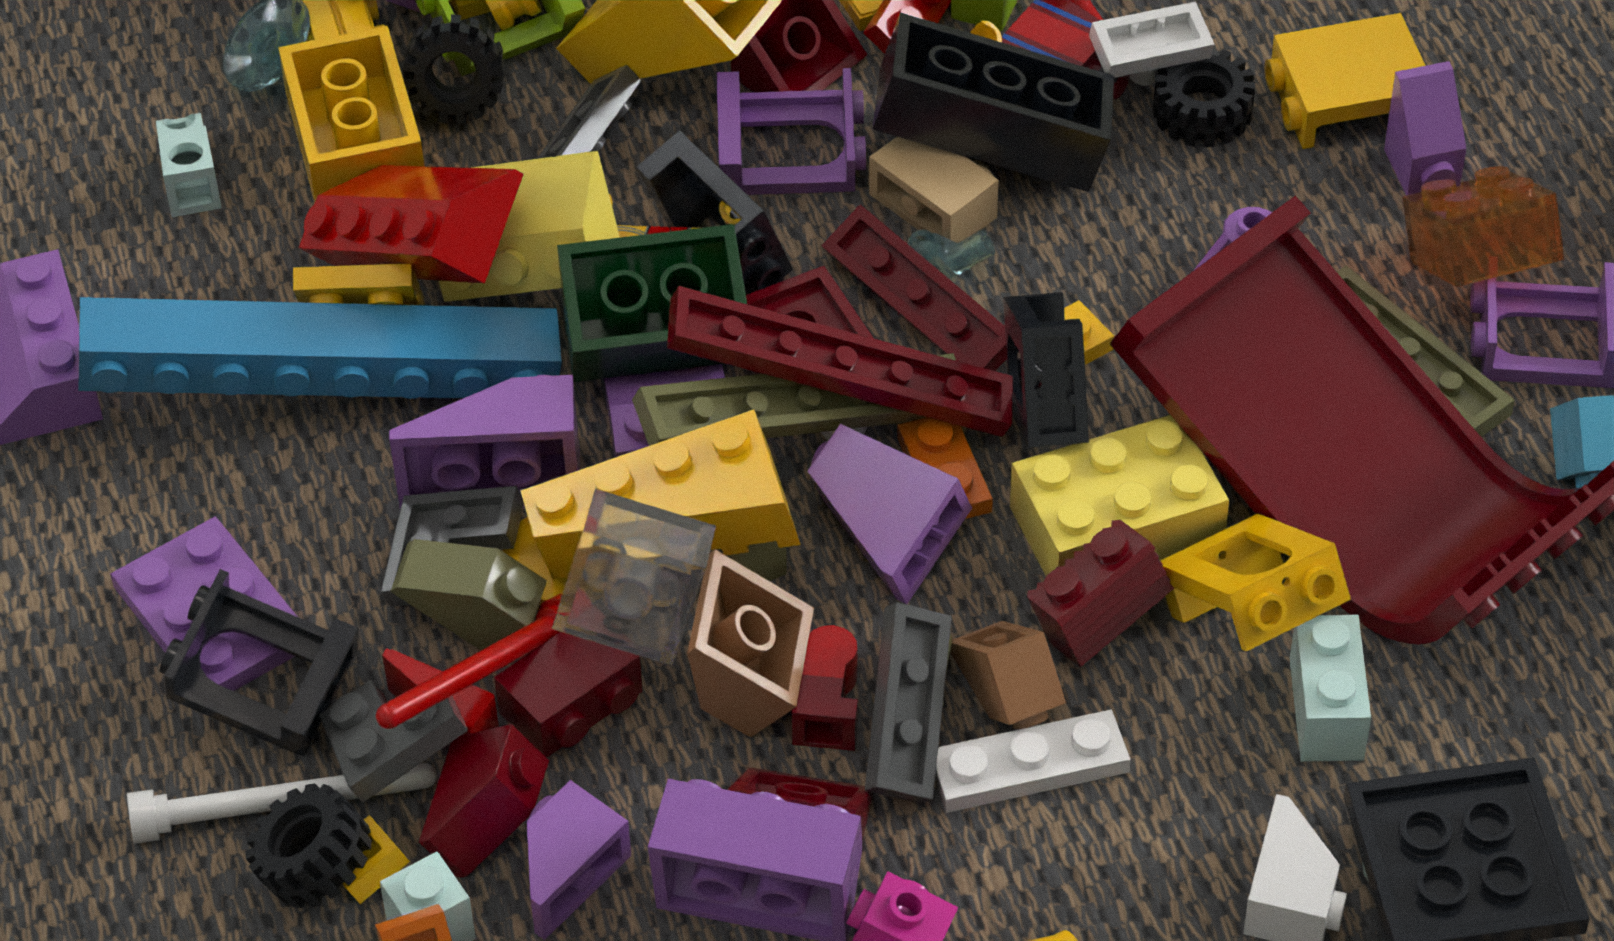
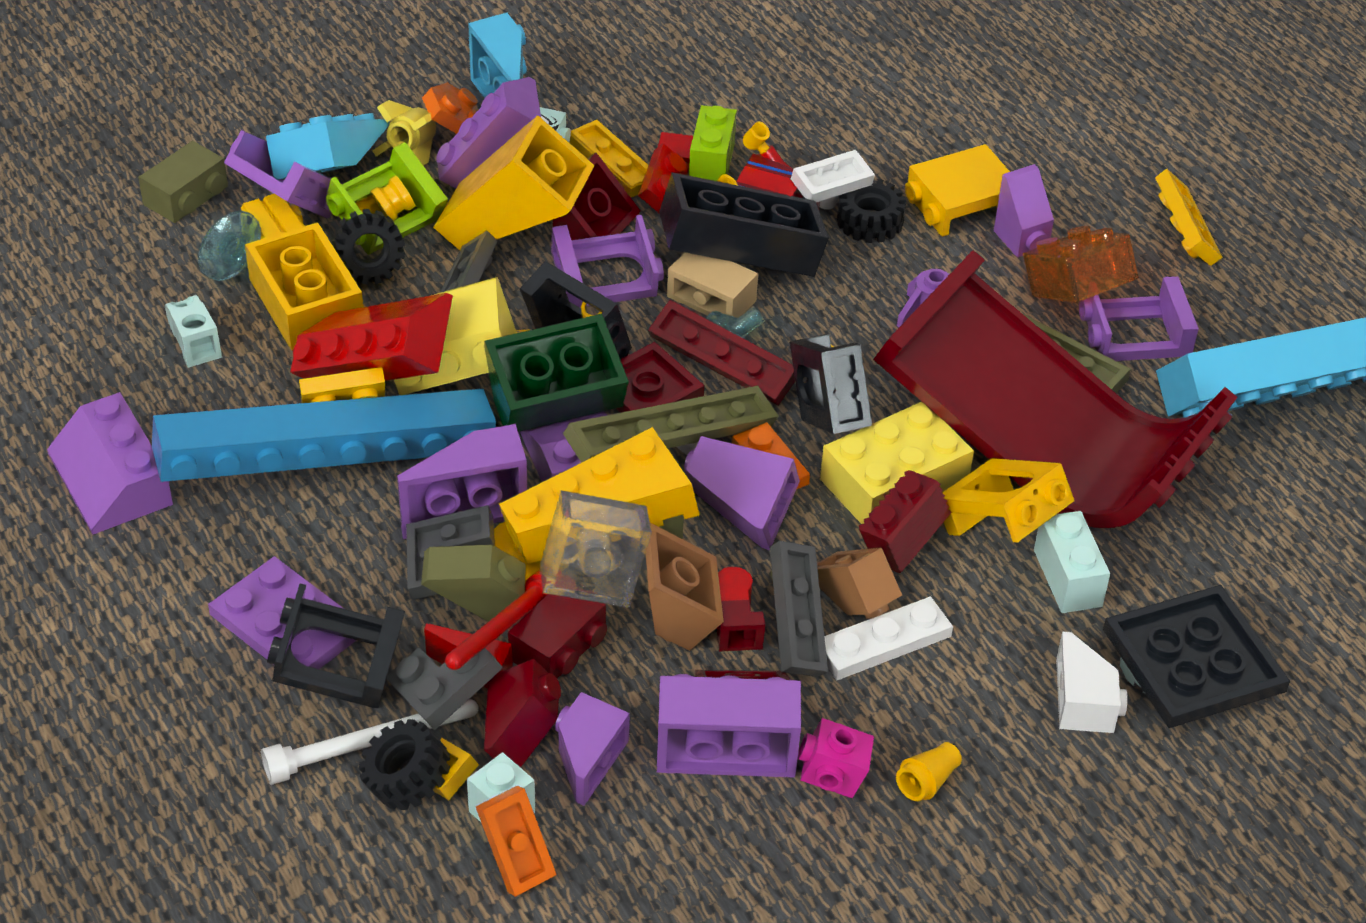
camera: 15 degrees left, 5 degrees down
(839, 361) = (692, 394): dark red plate -> none

